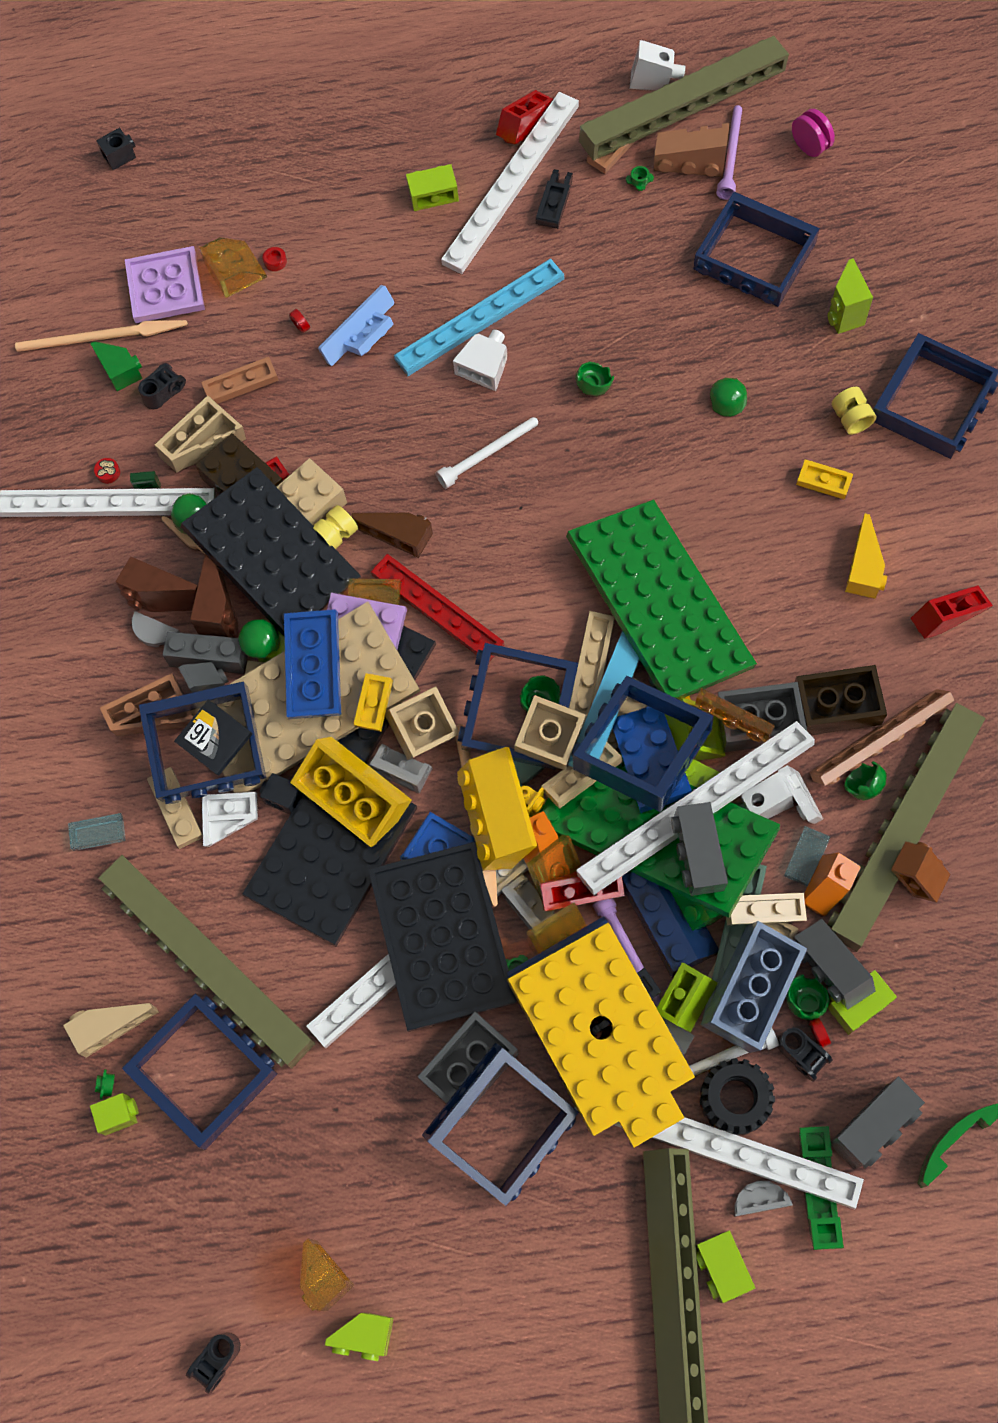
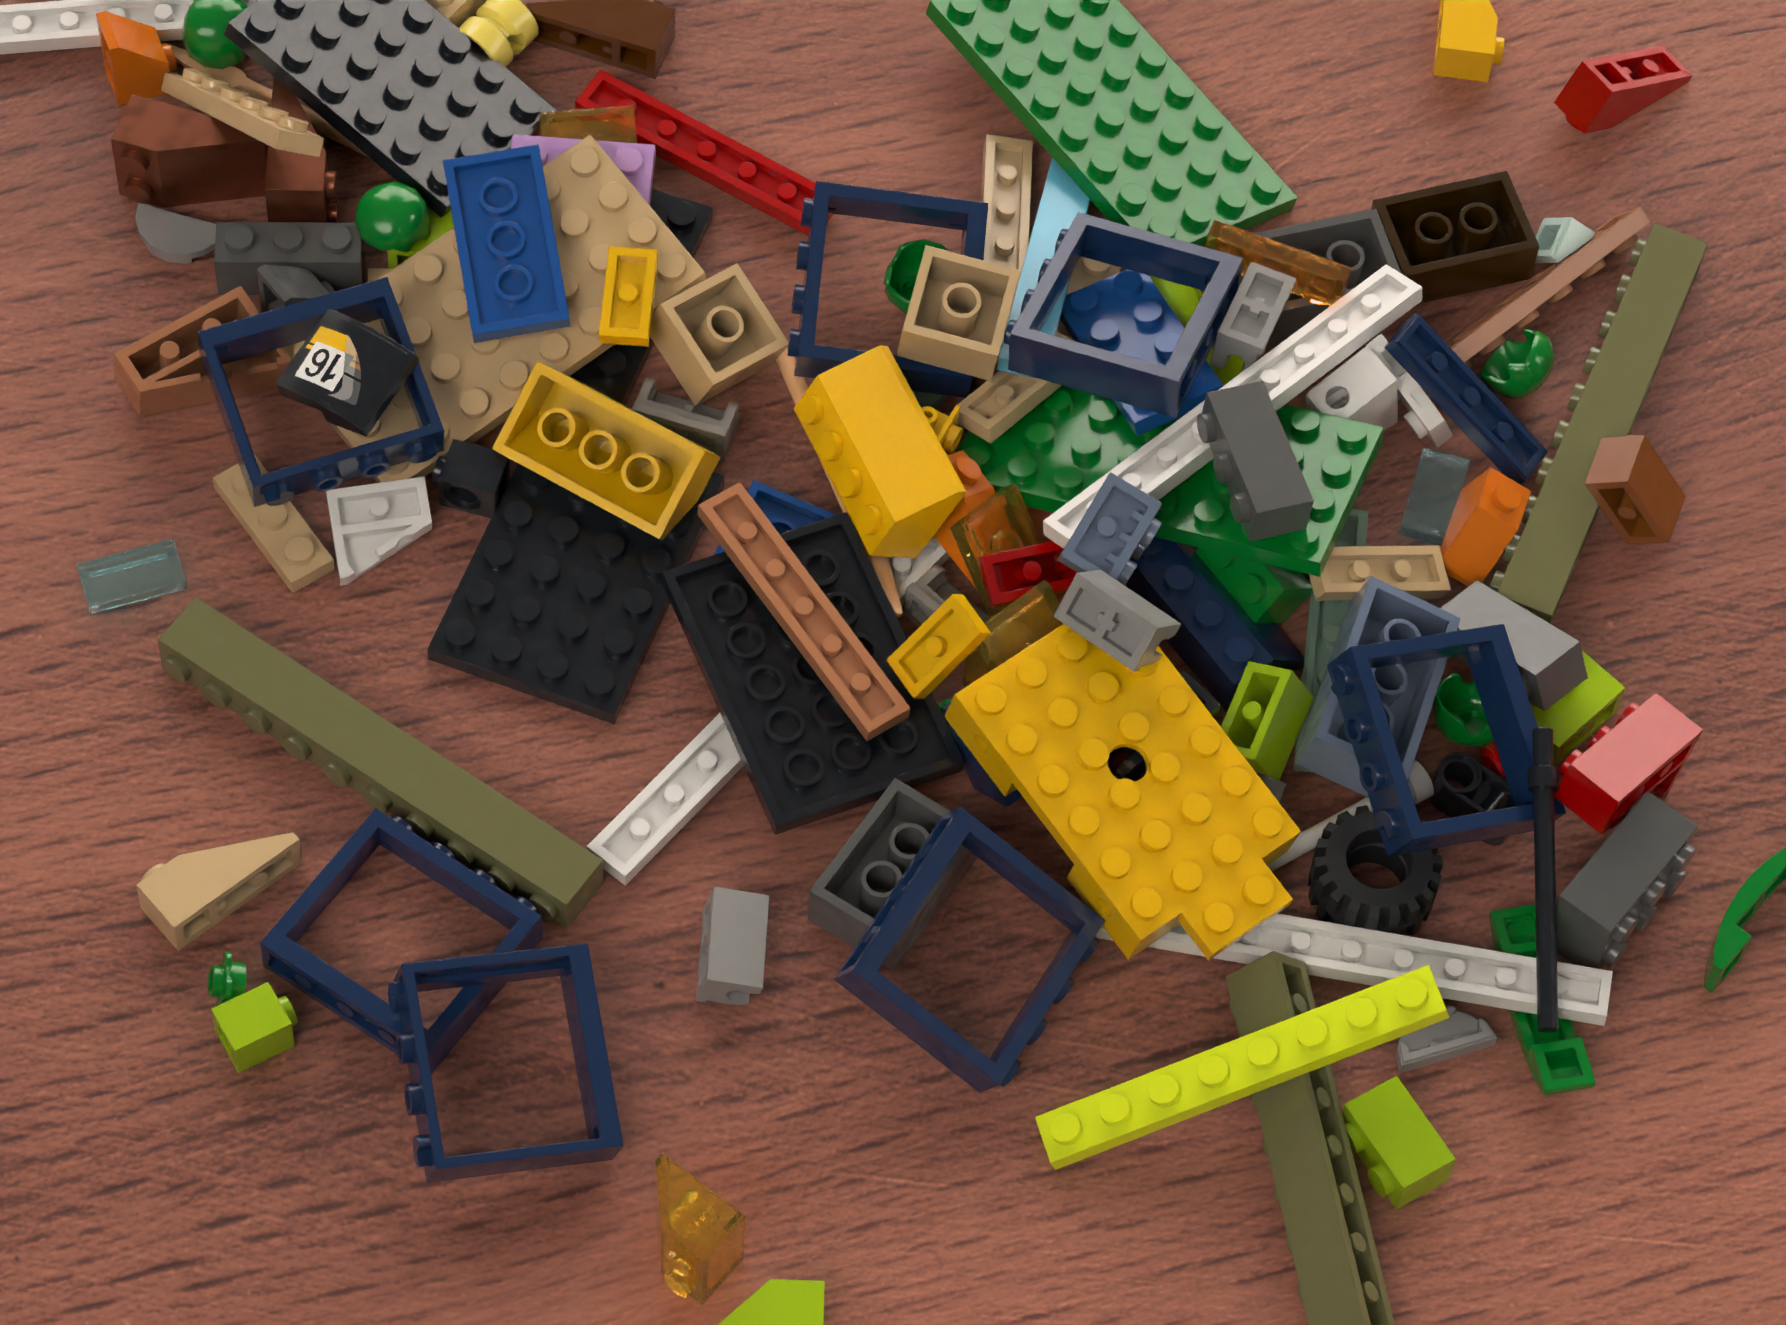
camera: 20 degrees left, 10 degrees down
(143, 527) = (133, 57): none -> orange slope
(184, 574) = (242, 112): none -> tan plate
(188, 1151) = (588, 1046): none -> dark blue window
(376, 1096) = (732, 946): none -> light grey hinge
(439, 904) = (803, 611): none -> nougat plate
(509, 937) = (938, 646): none -> yellow plate
(604, 945) = (1115, 619): none -> light grey hinge
(611, 887) = (1113, 530): none -> sand blue bracket
(643, 1218) = (1242, 1067): none -> neon yellow plate
(715, 748) = (1252, 315): none -> light grey hinge
(826, 1022) = (1377, 756): none -> dark blue window
(831, 804) = (1466, 399): none -> dark blue tile
(838, 1064) = (1543, 782): none -> black bar
(889, 1054) = (1626, 762): none -> wedge
(900, 705) = (1560, 238): none -> light aqua slope

